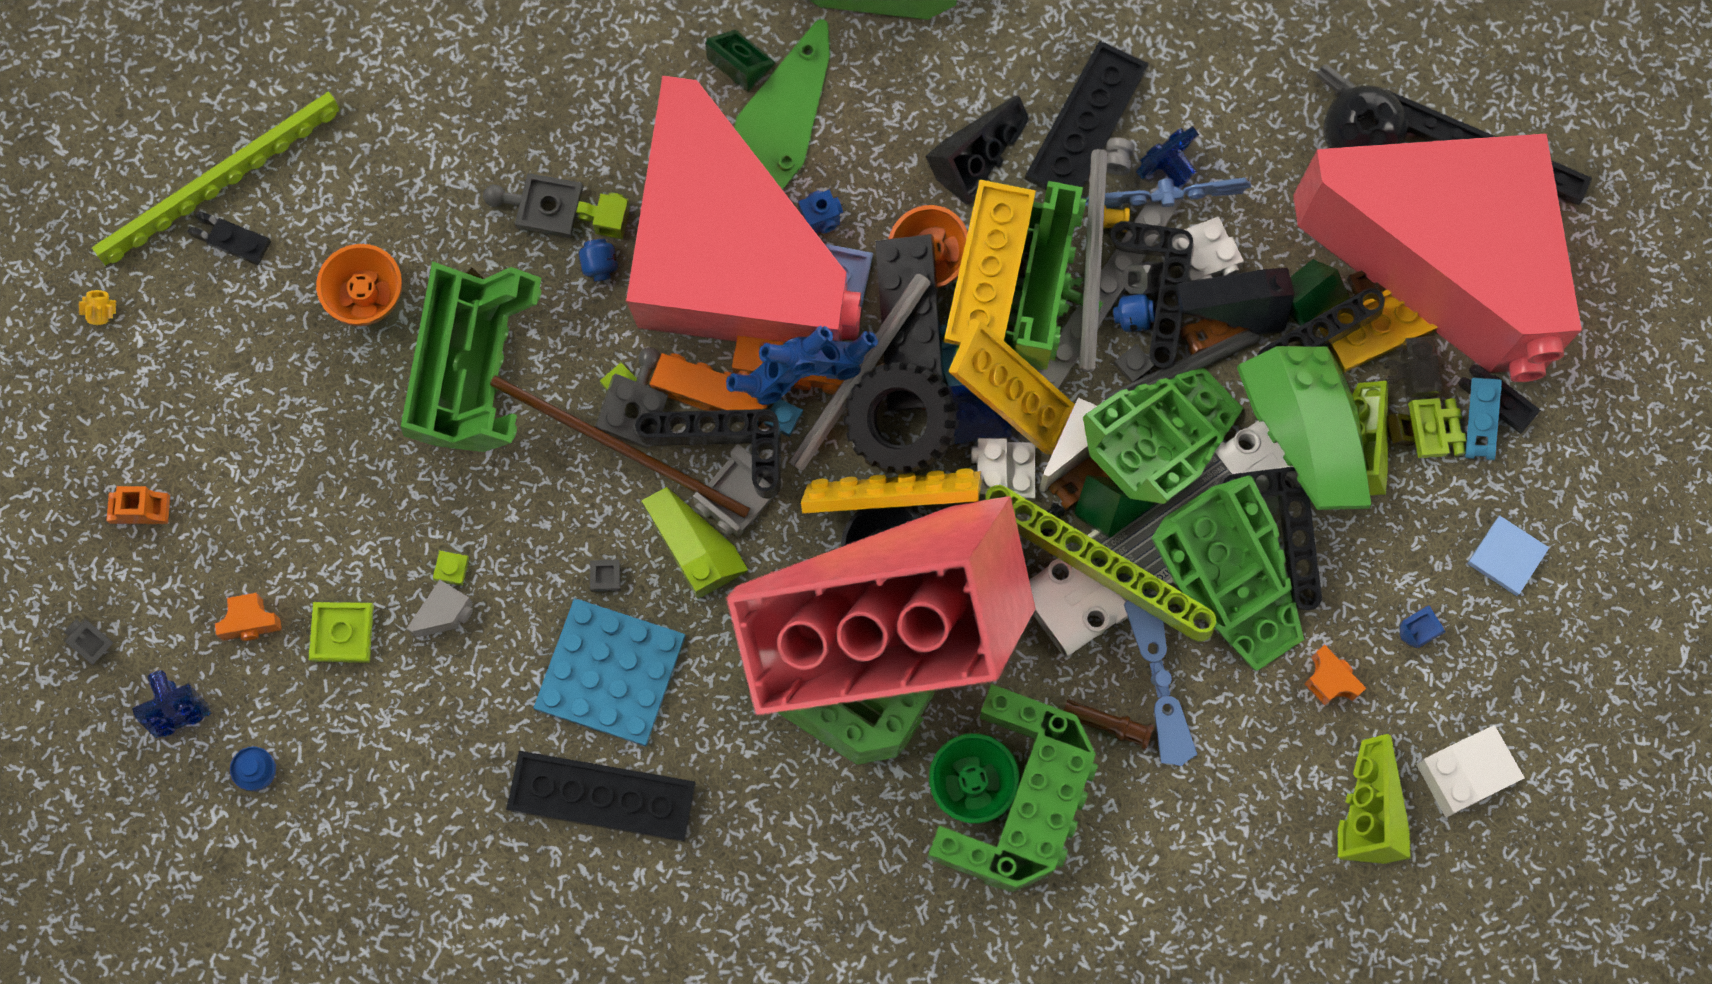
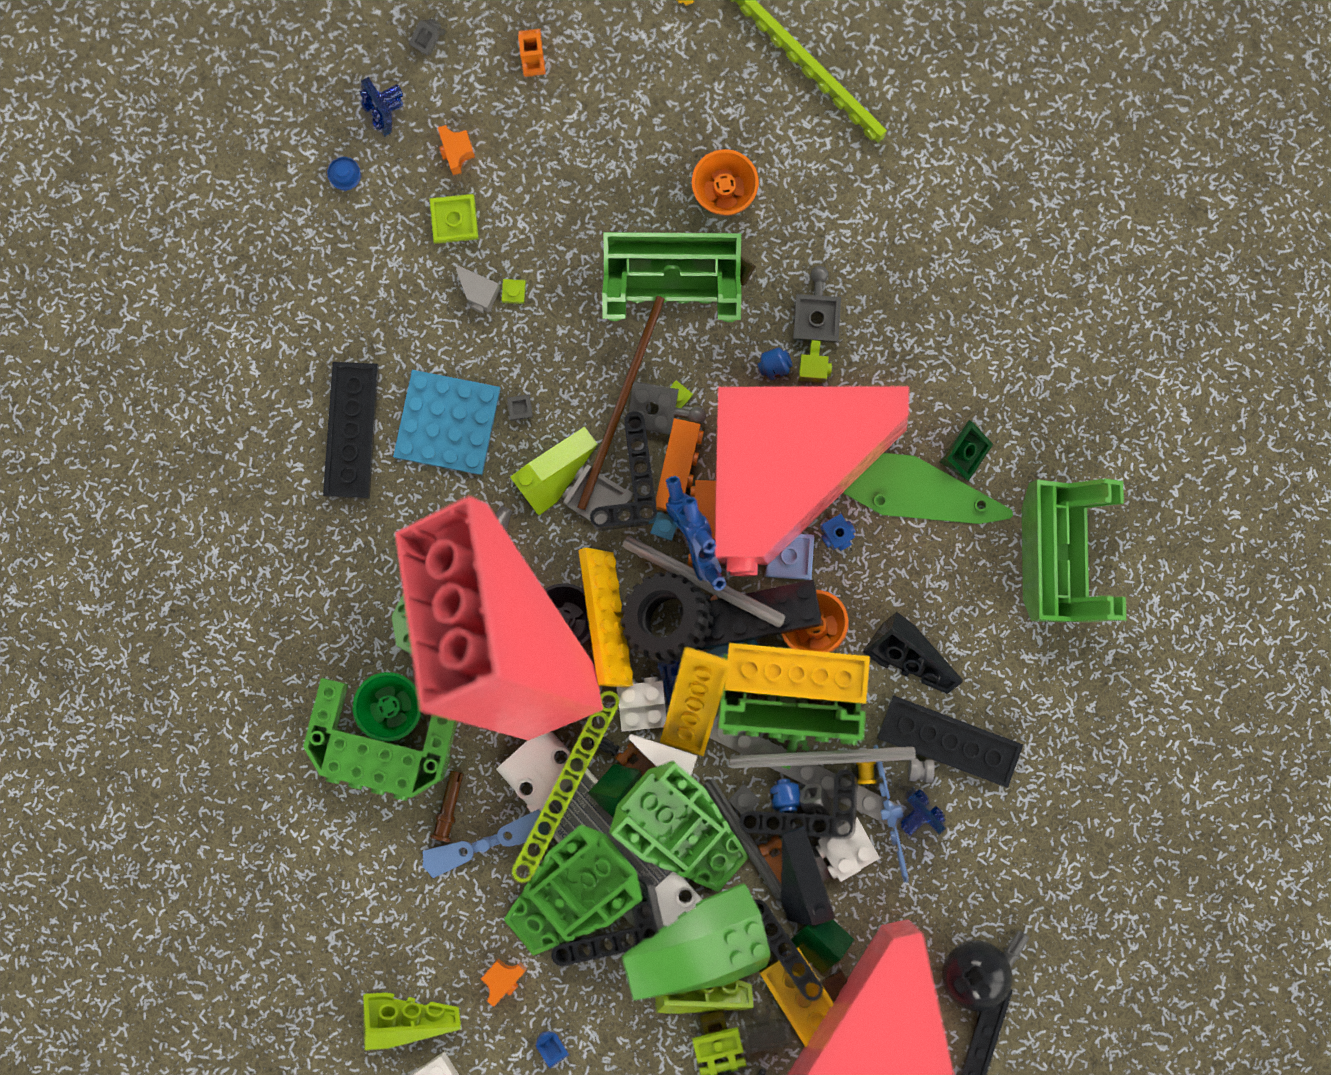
camera: 85 degrees right, 10 degrees up
(231, 238) = (757, 80): black hinge -> none

